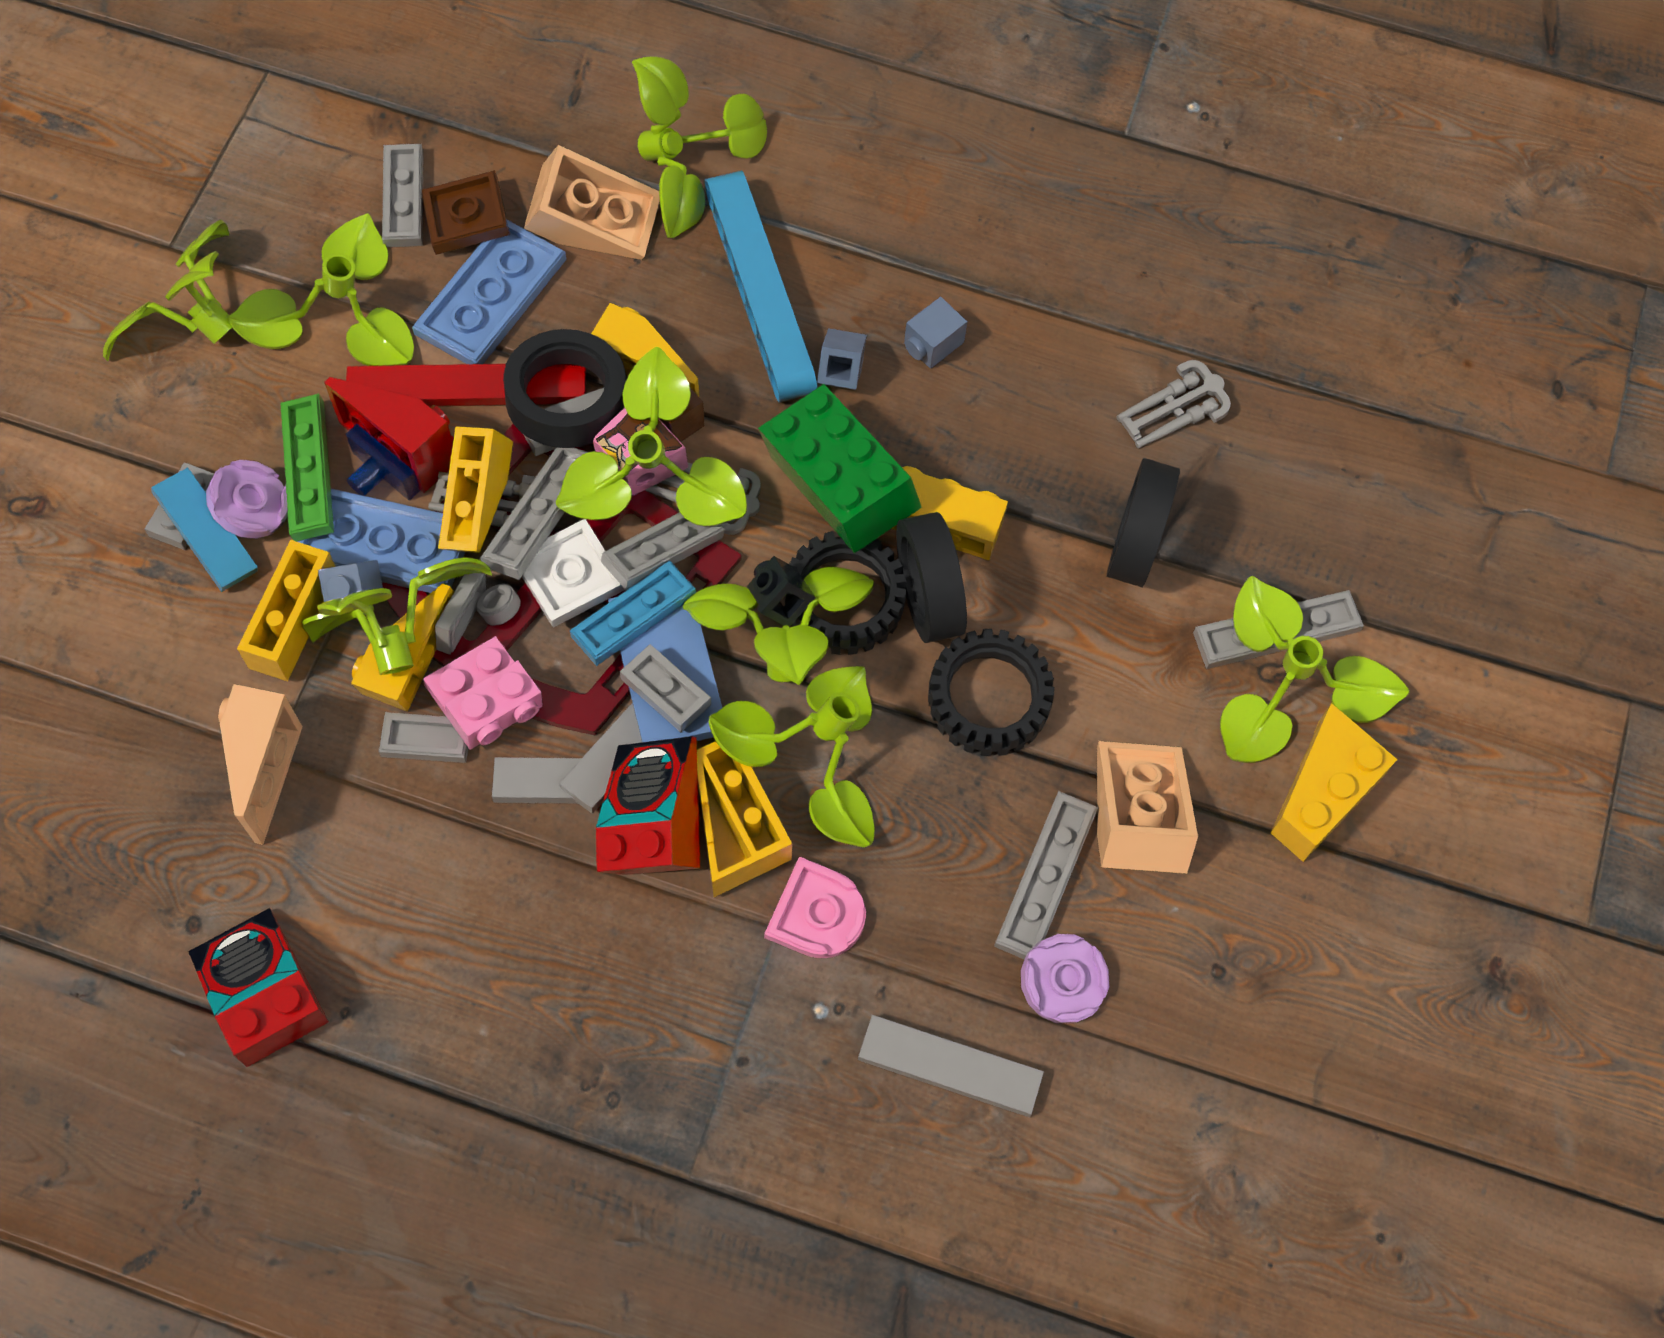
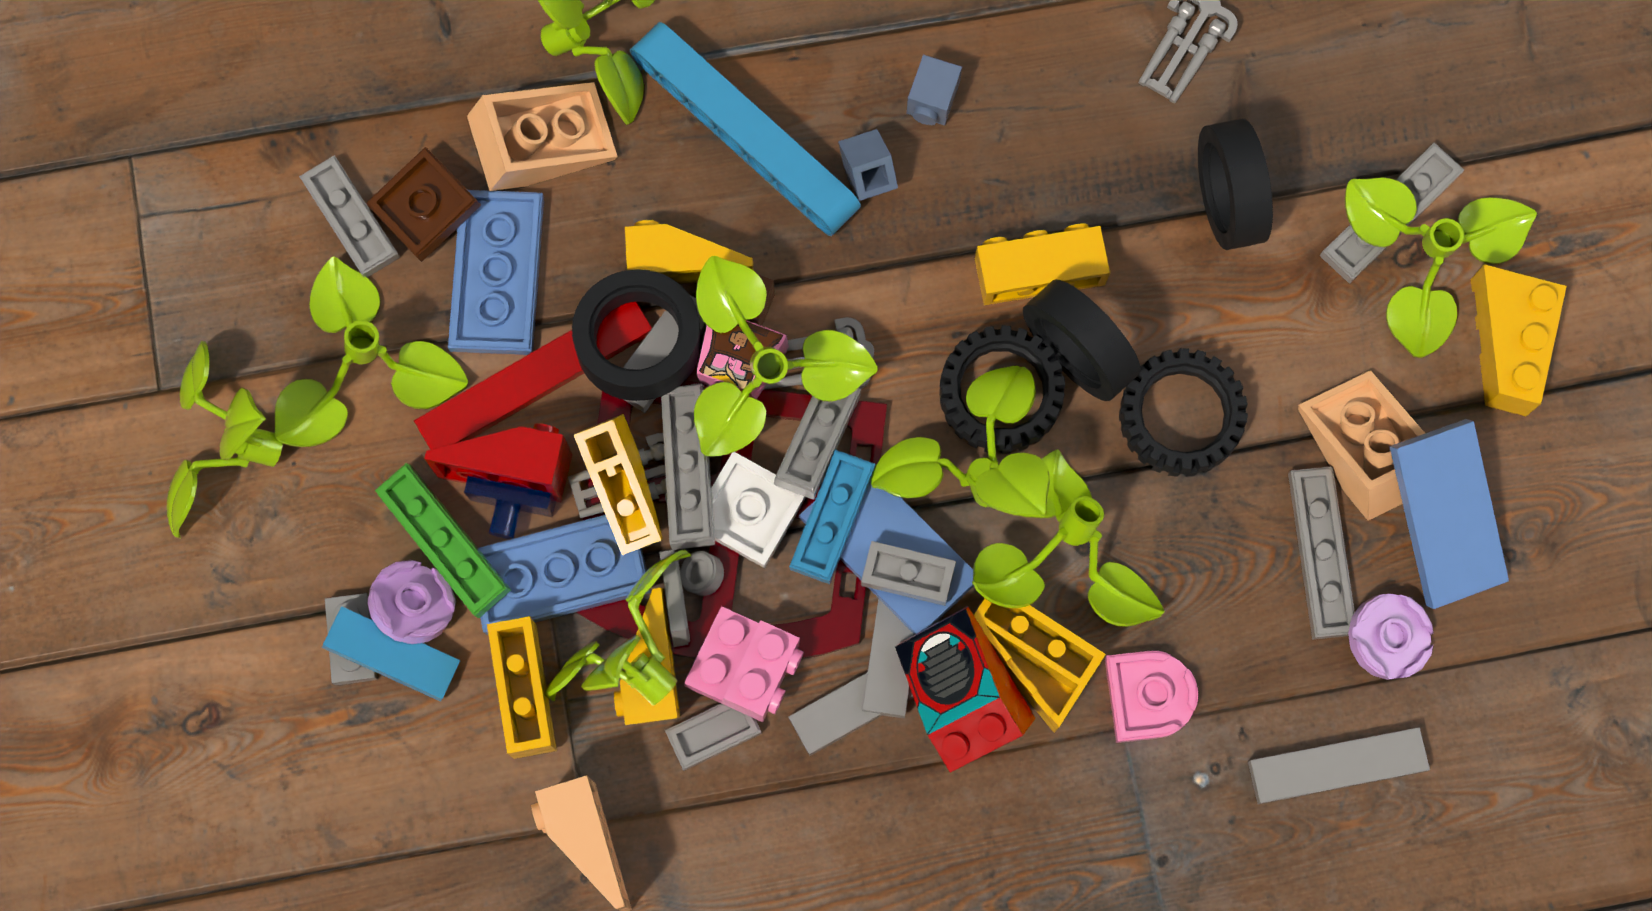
camera: 25 degrees left, 10 degrees up
(347, 579) = (565, 633): sand blue brick -> none
(772, 582) = (955, 426): black brick -> none
(840, 468) = (936, 277): green brick -> none
(1176, 895) = (1449, 513): none -> medium blue tile

